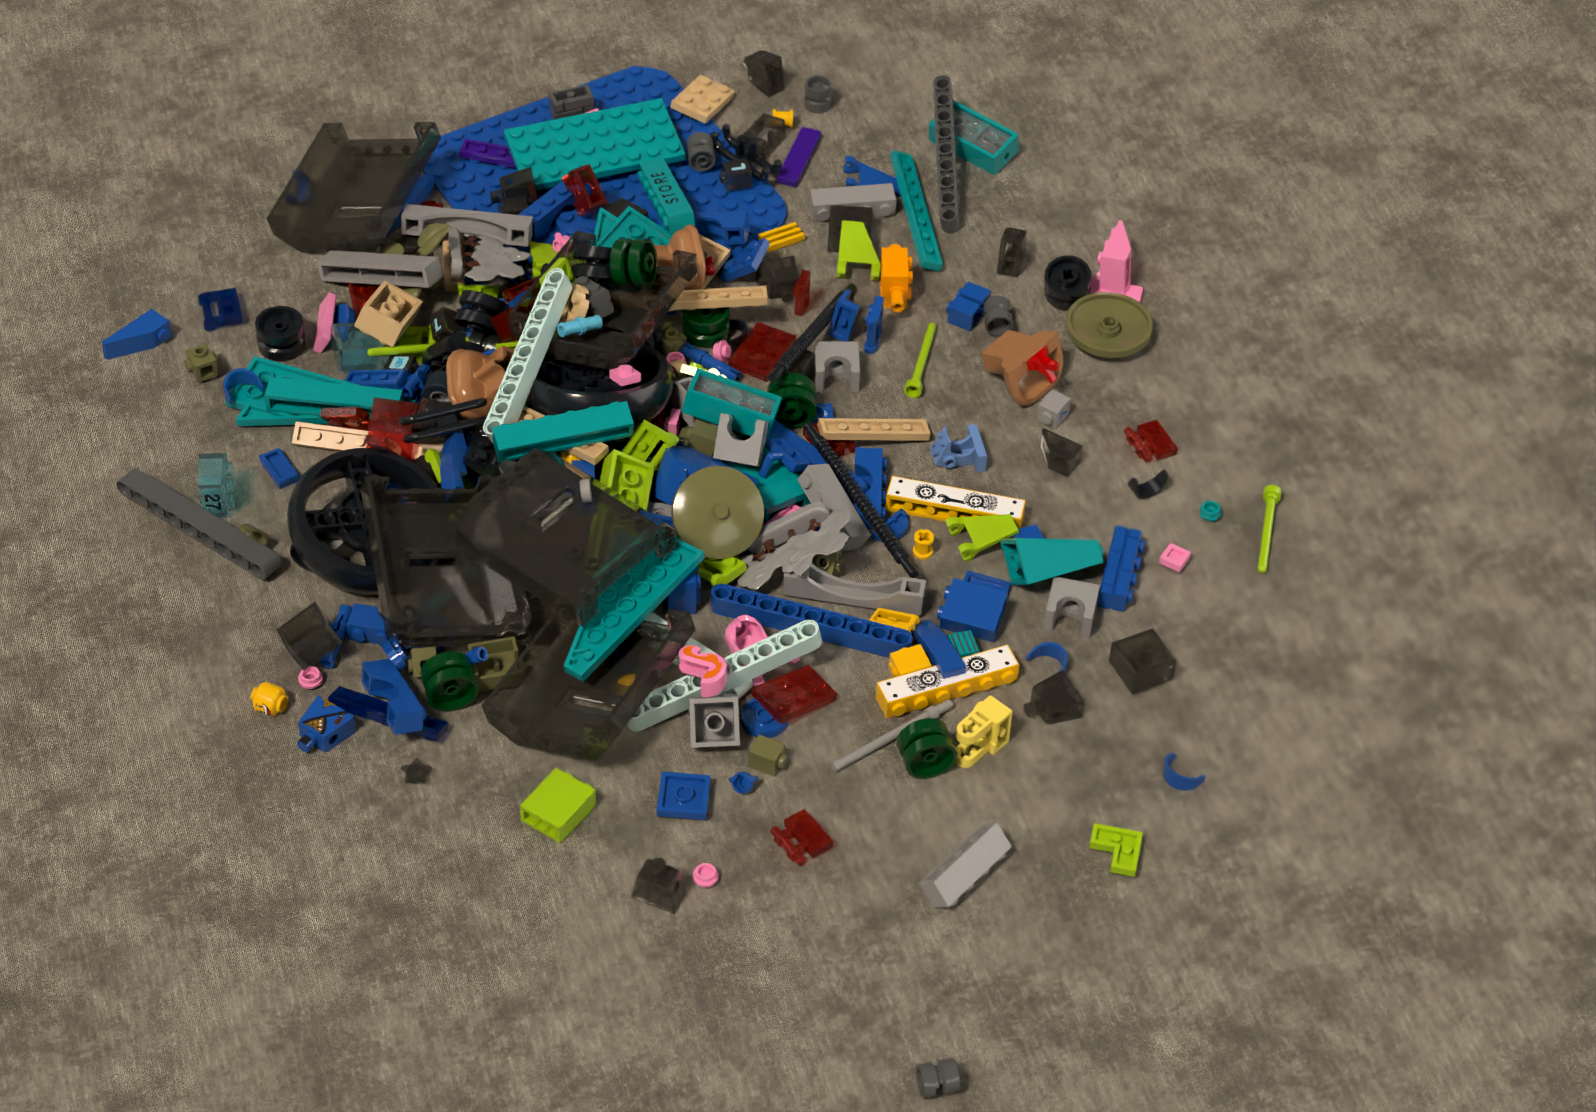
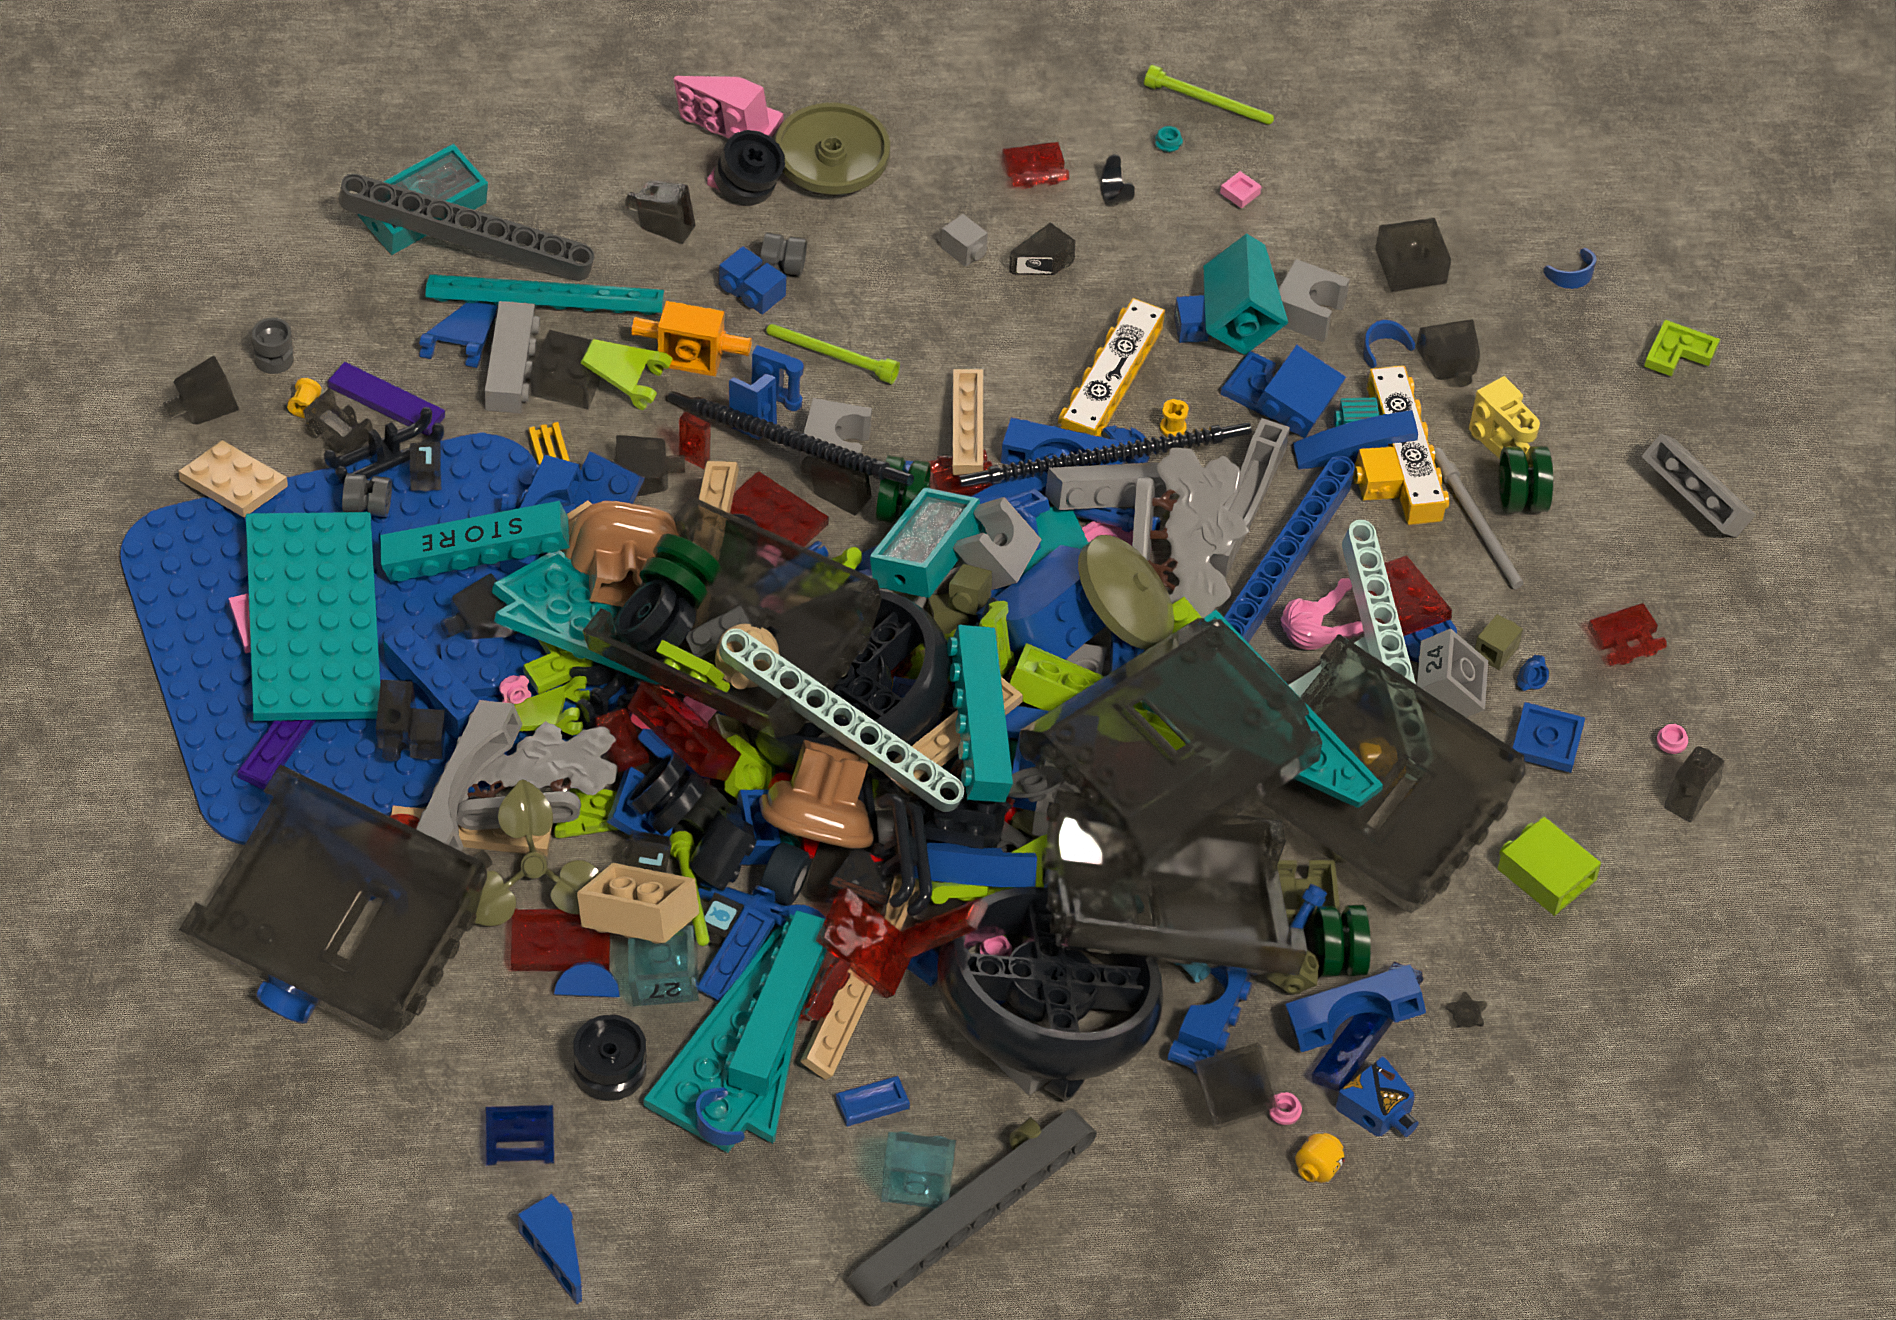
camera: 80 degrees left, 5 degrees up
(201, 363) = (644, 1165): olive brick -> none
(325, 322) = (587, 1001): bright pink tile -> none
(377, 267) = (525, 906): light grey brick -> none
(395, 654) = (1286, 993): blue plate -> none
(570, 102) = (213, 625): dark grey brick -> none
(576, 181) = (446, 626): clear red brick -> none
(579, 325) = (791, 650): medium azure pin -> none
(585, 490) = (1154, 679): light grey tile -> none
(625, 375) = (889, 627): bright pink plate -> none
(708, 666) = (1410, 639): bright pink animal -> none
(894, 619) = (1284, 494): yellow tile -> none
(971, 449) = (1017, 348): medium blue tile -> none
(983, 531) = (1171, 350): lime flag -> none
(1027, 362) = (894, 239): medium nougat piece -> none
(1120, 569) = (1219, 229): blue brick -> none

